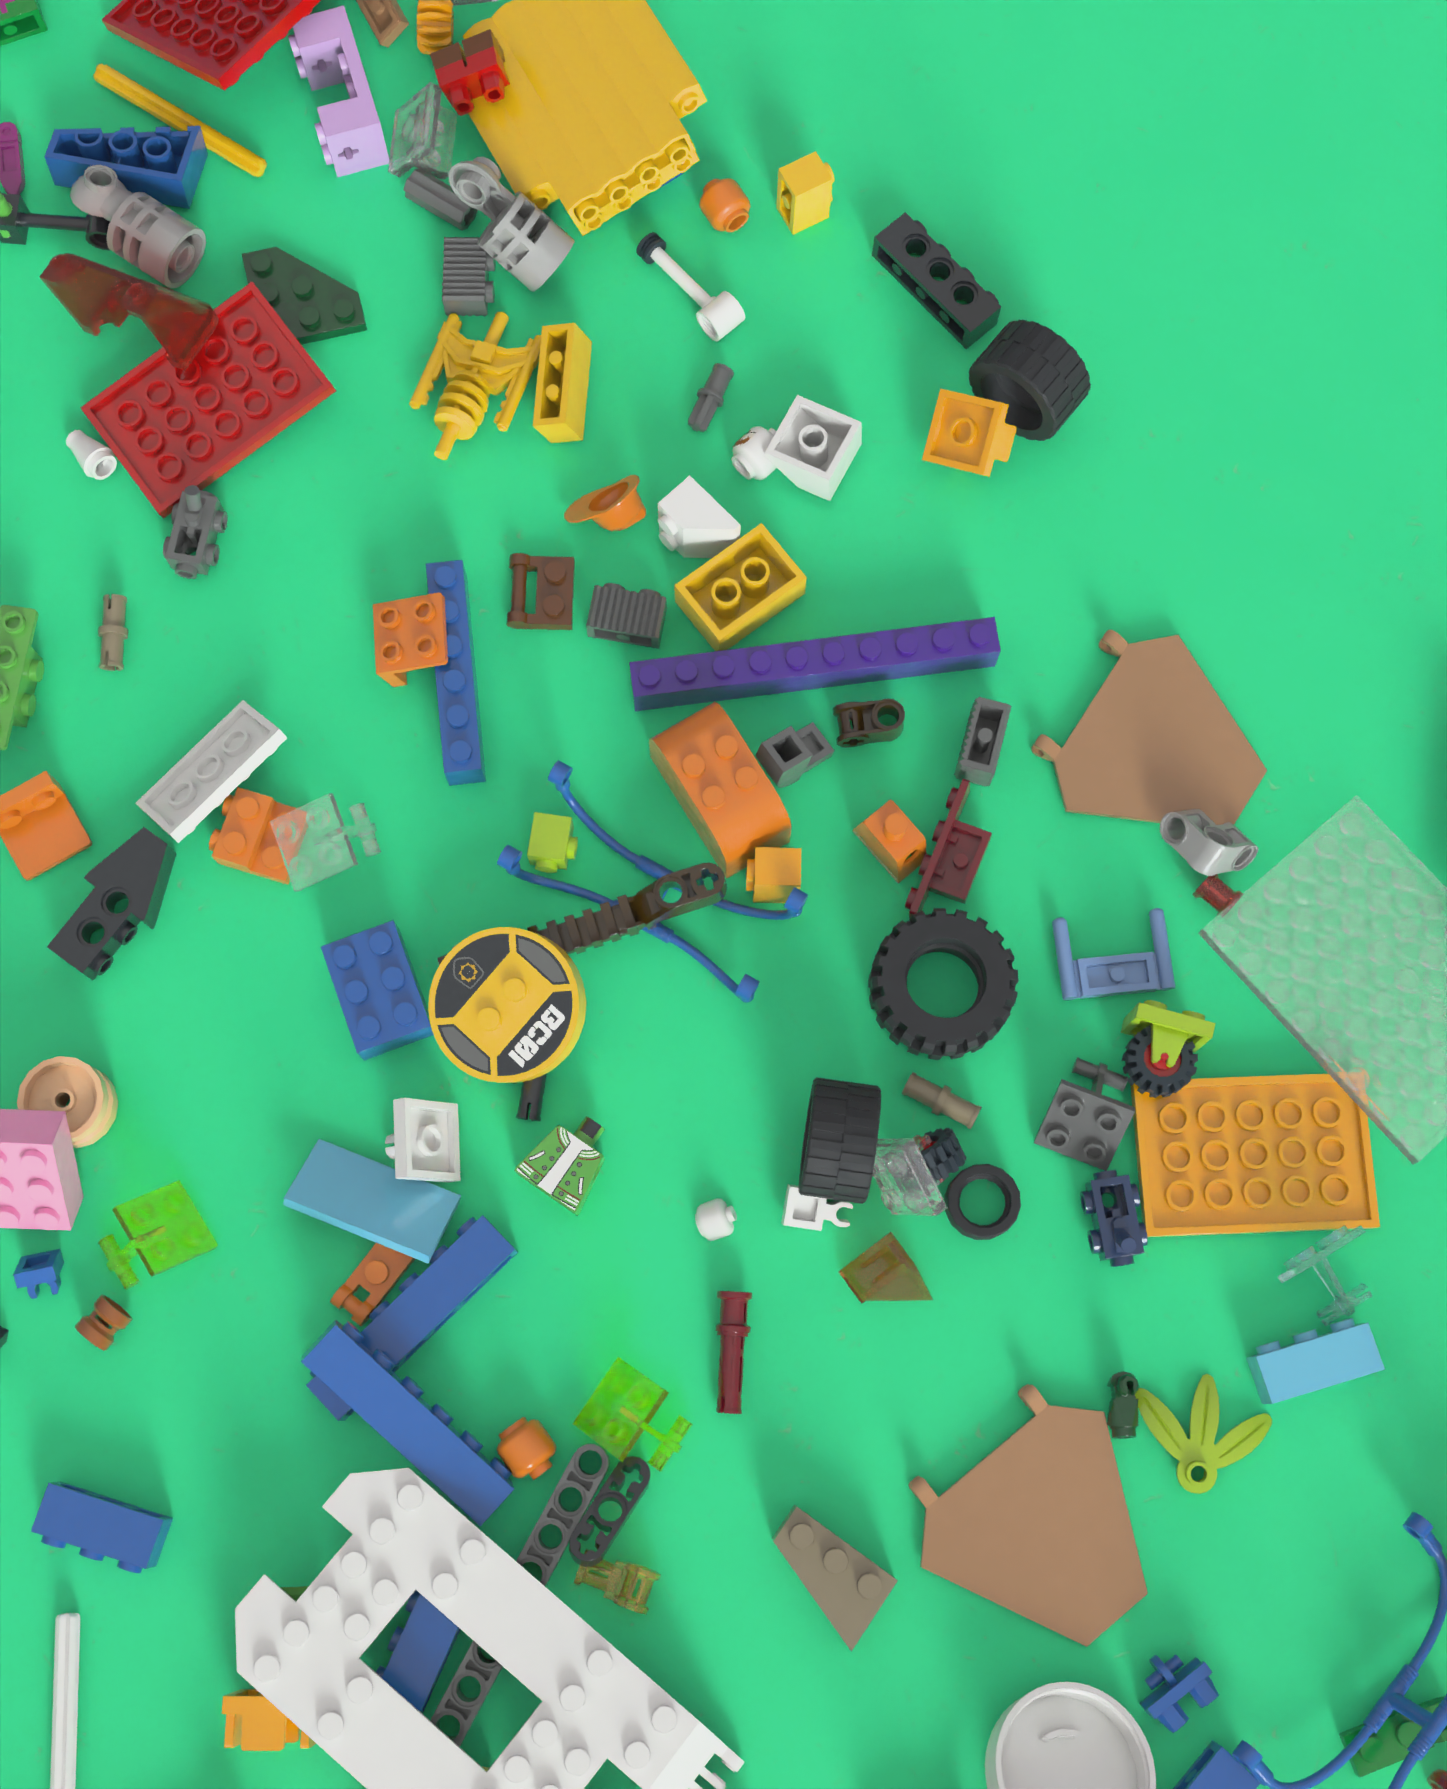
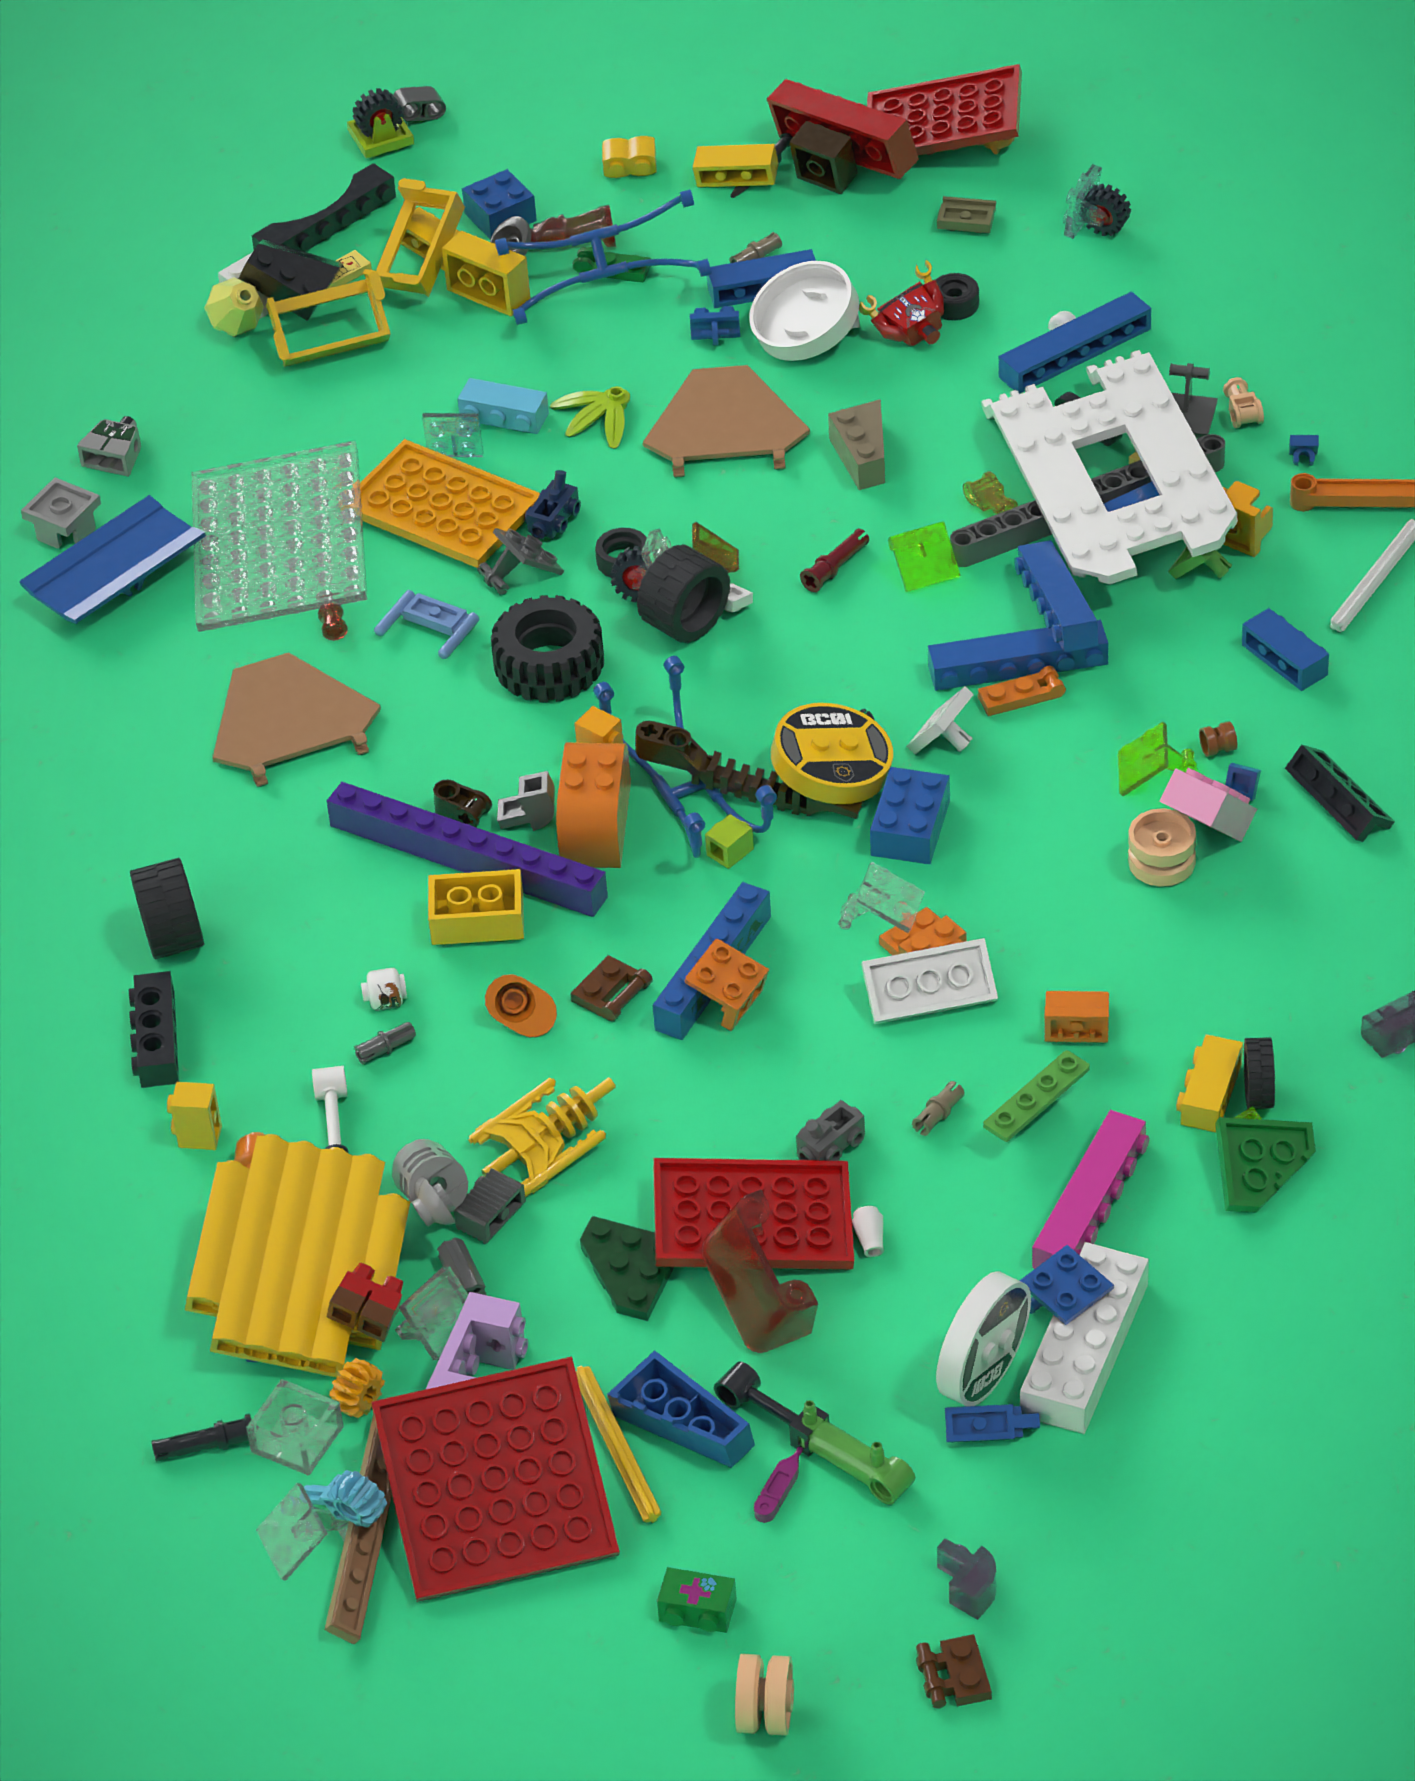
camera: 140 degrees left, 30 degrees down
(132, 872) = (1044, 948): black brick -> none
(141, 227) = (710, 1342): light grey cylinder -> none
(370, 1201) = (1002, 716): medium azure tile -> none
(526, 1448) = (997, 571): orange head -> none
(562, 383) = (483, 1089): yellow brick -> none
(565, 1164) = (863, 680): torso -> none
(585, 1530) = (973, 508): black beam -> none
(627, 615) = (566, 938): dark grey brick -> none
(695, 522) = (472, 952): white slope -> none
(715, 1219) = (791, 624): white piece -> none
(815, 446) = (342, 955): white slope -> none
(892, 839) = (507, 720): orange torso -> none
(941, 1100) = (601, 608): dark tan pin -> none
(955, 857) = (479, 711): dark red bracket -> none
(968, 433) = (237, 906): light orange panel -> none
(982, 741) = (399, 752): dark grey brick -> none
(1123, 1405) = (631, 437): dark green arm -> none
(1163, 1047) = (443, 557): plate -> none
(1204, 844) = (313, 637): light grey piece -> none

